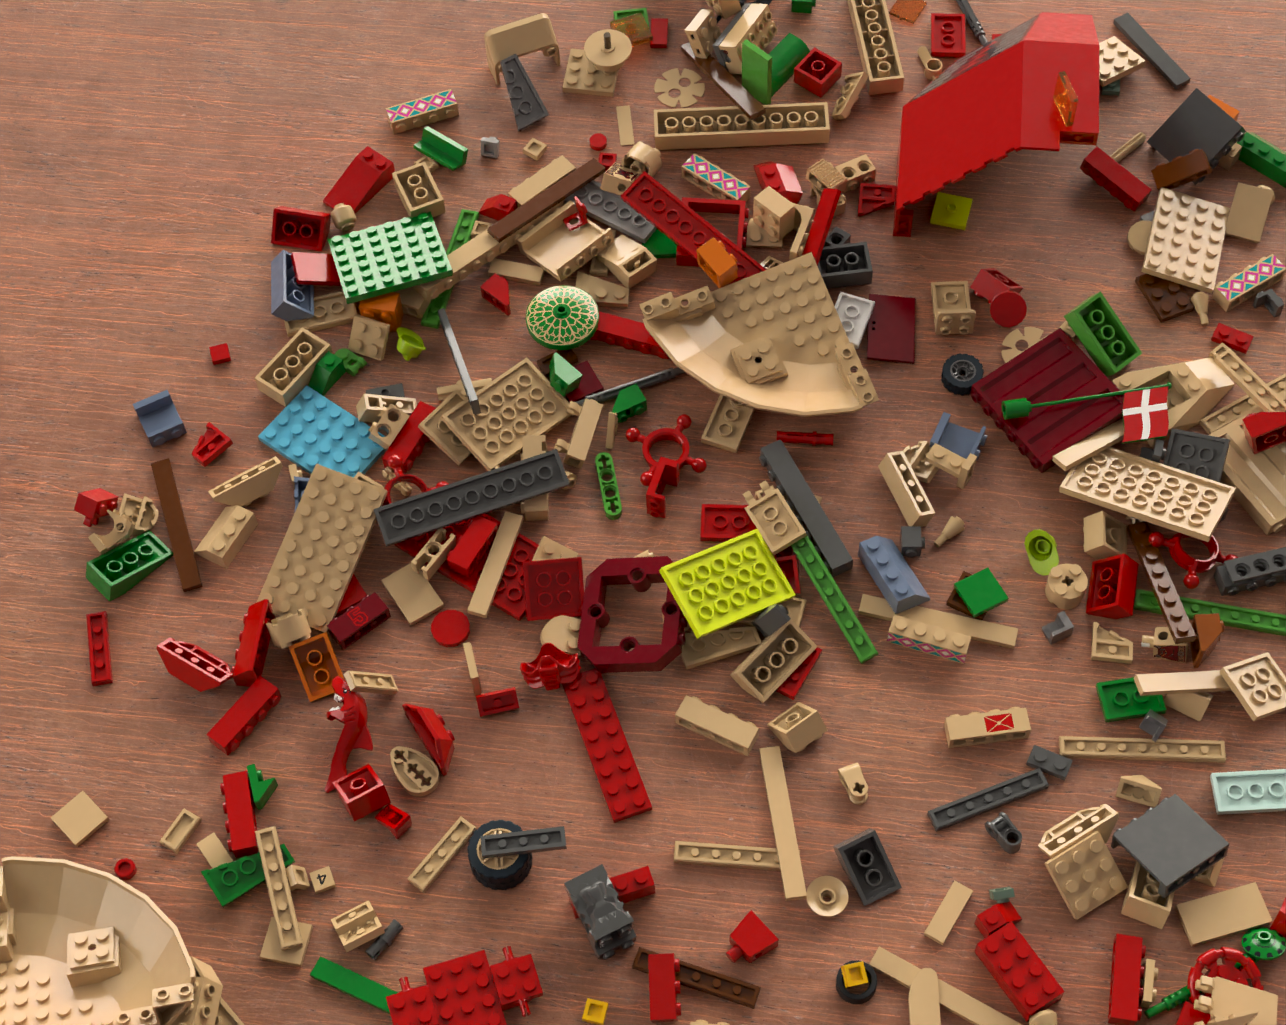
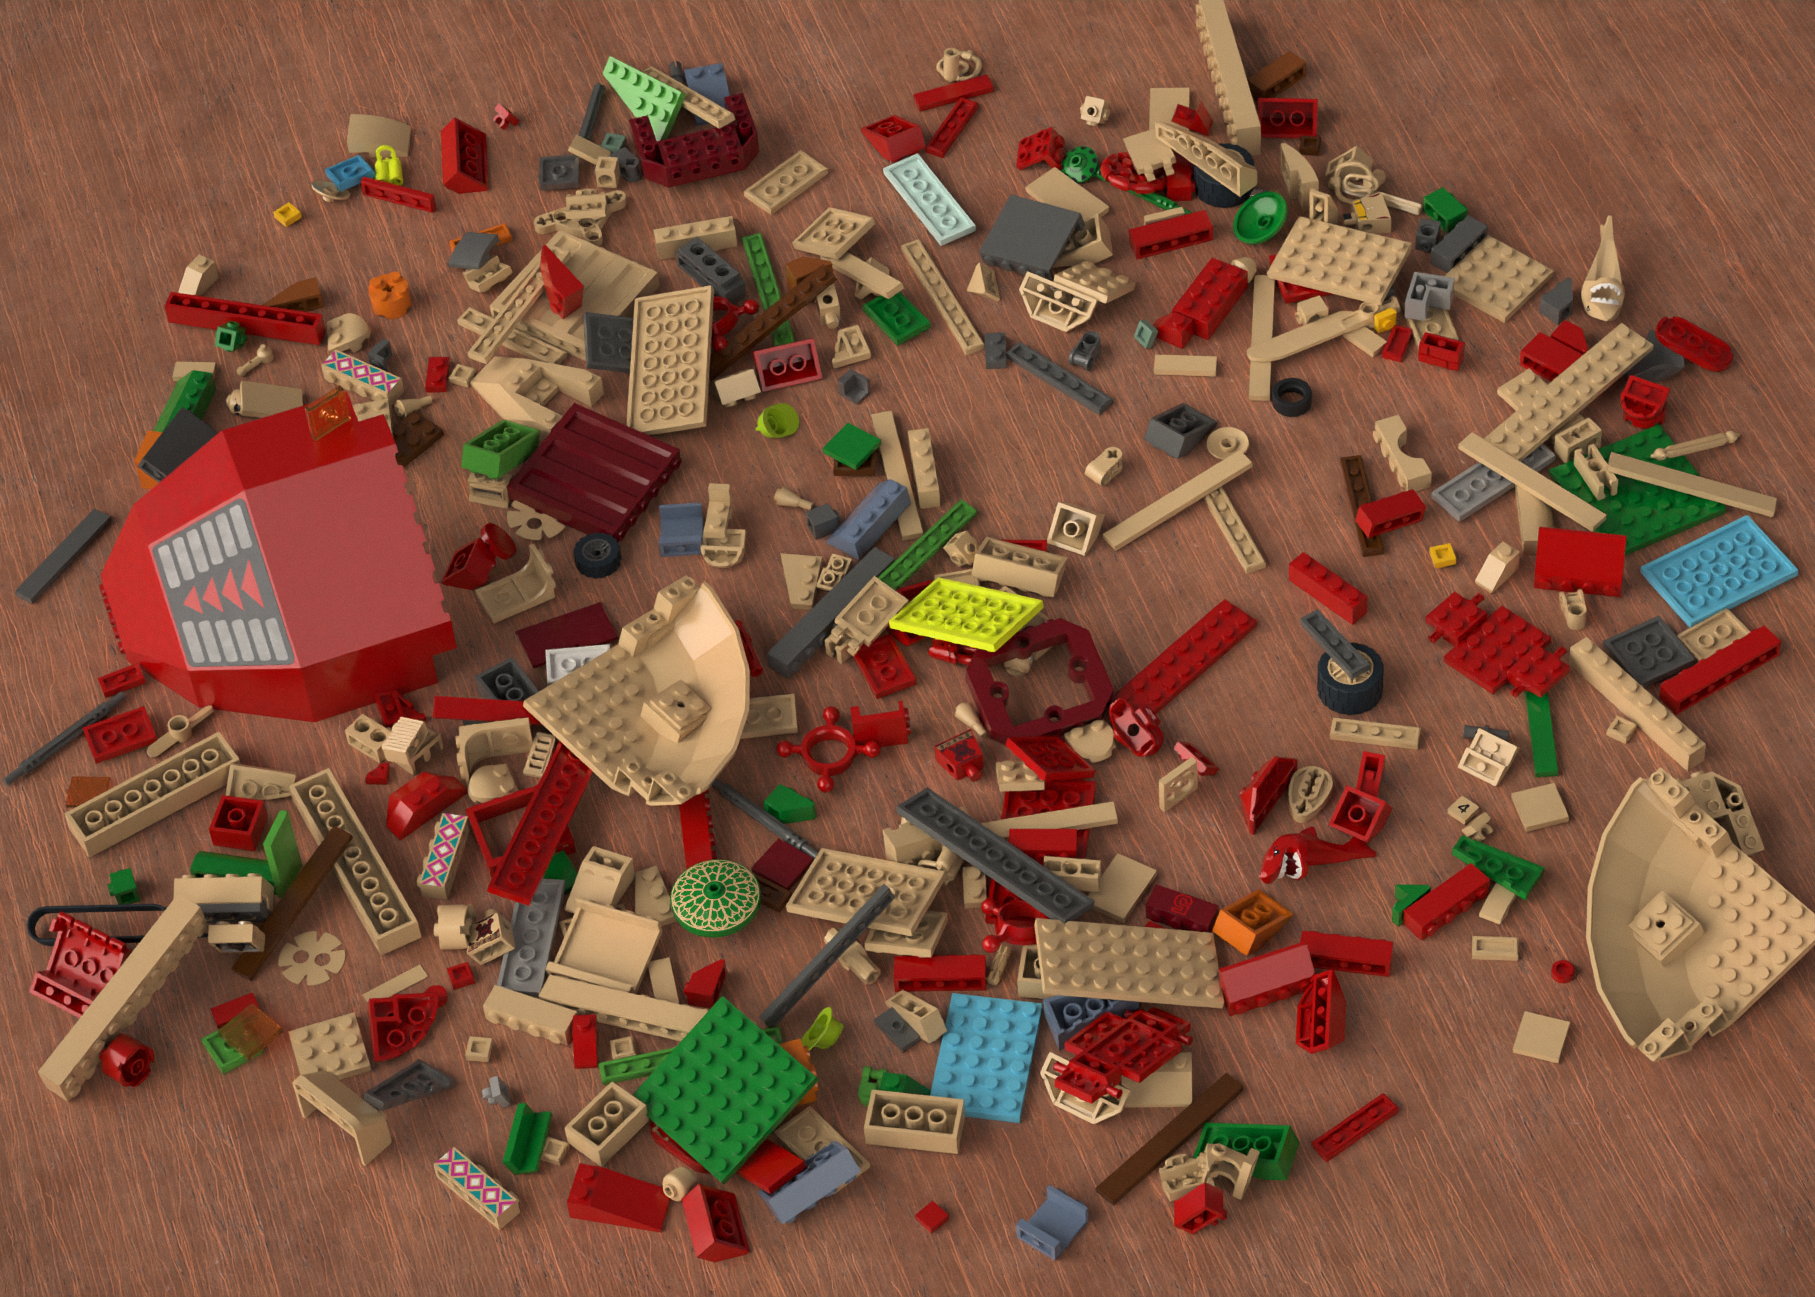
camera: 115 degrees left, 10 degrees down
(210, 445) = (1056, 1156): red wing -> none
(246, 506) = (1117, 1048): none -> red piece
(278, 888) = (1497, 828): tan tile -> none
(289, 628) = (1234, 945): tan brick -> none
(294, 472) = (1053, 1046): tan plate -> none
(368, 337) = (836, 1069): tan plate -> none
(371, 682) = (1247, 852): tan tile -> none
(391, 428) = (944, 985): tan brick -> none
(450, 628) = (1139, 837): red tile -> none
(546, 200) = (560, 983): reddish brown tile -> none
(563, 375) = (790, 865): slope -> none
(580, 215) = (560, 948): red bracket -> none
(582, 435) = (847, 826): tan brick -> none
(586, 111) = (400, 1023): none -> red brick
(601, 912) = (1360, 565): dark grey brick -> none
(602, 537) = (961, 756): none -> red torso
(608, 49) = (305, 1019): tan piece -> none
(608, 486) = (893, 780): bright green beam -> none
(611, 429) = (830, 803): tan tile -> none
(717, 262) = (581, 772): orange brick -> none
(717, 725) = (1112, 585): tan brick -> none
(751, 939) = (1303, 478): red torso -> none
(771, 619) = (982, 570): dark grey slope -> none
(773, 213) = (481, 761): tan brick -> none
(818, 626) = (962, 548): none -> tan brick
(849, 529) = (836, 569): none -> tan slope
(854, 974) = (1290, 390): yellow plate -> none
(859, 506) = (801, 579): none -> tan wing
(906, 489) = (766, 541): tan brick -> none
(987, 727) = (989, 398): tan brick -> none
(1066, 586) = (806, 392): tan brick -> none
(1090, 446) = (652, 426): tan tile -> none
(1117, 61) = (84, 581): tan plate -> none
(1142, 411) = (582, 390): flag -> none
(1153, 724) = (917, 286): flat silver panel -> none
(1154, 454) = (618, 380): dark grey bracket -> none

